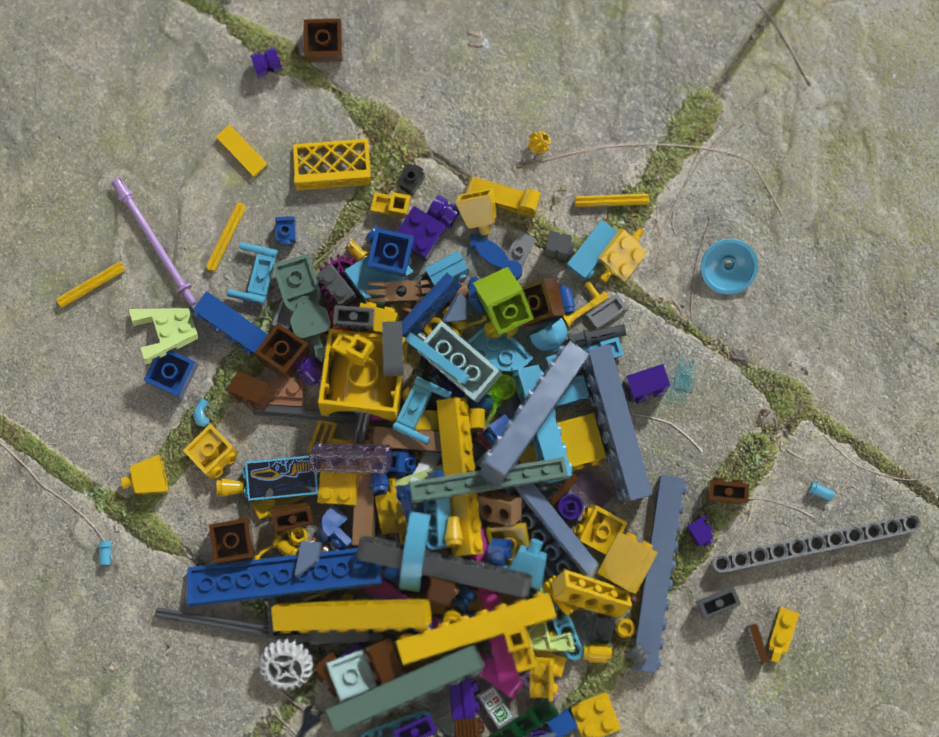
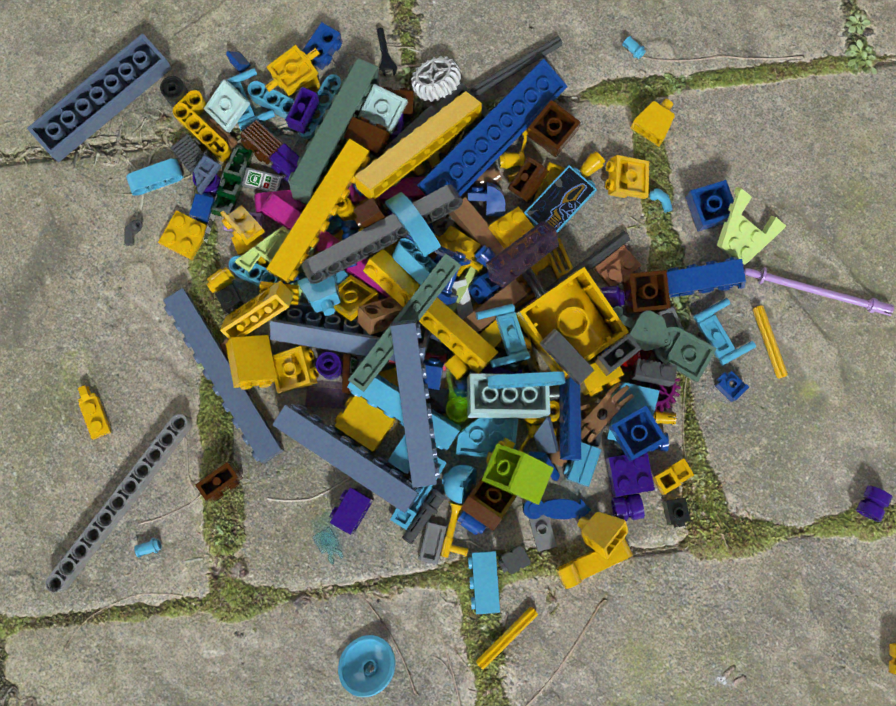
camera: 140 degrees right, 0 degrees up
(90, 284) = (831, 219): yellow axle -> none
(241, 151) = (823, 418): yellow tile -> none
(250, 391) = (641, 242): reddish brown brick -> none
(295, 541) = (510, 167): yellow plate -> none
(307, 557) = (488, 160): sand blue tile -> none
(323, 40) = (849, 562): reddish brown brick -> none
(336, 178) = (738, 455): yellow fence -> none
(354, 348) = (597, 330): yellow brick -> none
(453, 532) = (397, 263): yellow cone -> none
(499, 551) = (352, 283): blue brick -> none
(521, 646) = (274, 226): yellow brick -> none
(538, 142) = (605, 633): yellow gear -> none
(622, 255) = (459, 598): yellow plate -> none
(625, 628) = (214, 315): yellow plate -> none
(637, 654) = (185, 299): dark grey wheel -> none
(701, 532) = (216, 434): dark purple brick -> none
(718, 603) = (158, 391): dark grey brick -> none
(757, 643) = (105, 389): reddish brown tile -> none

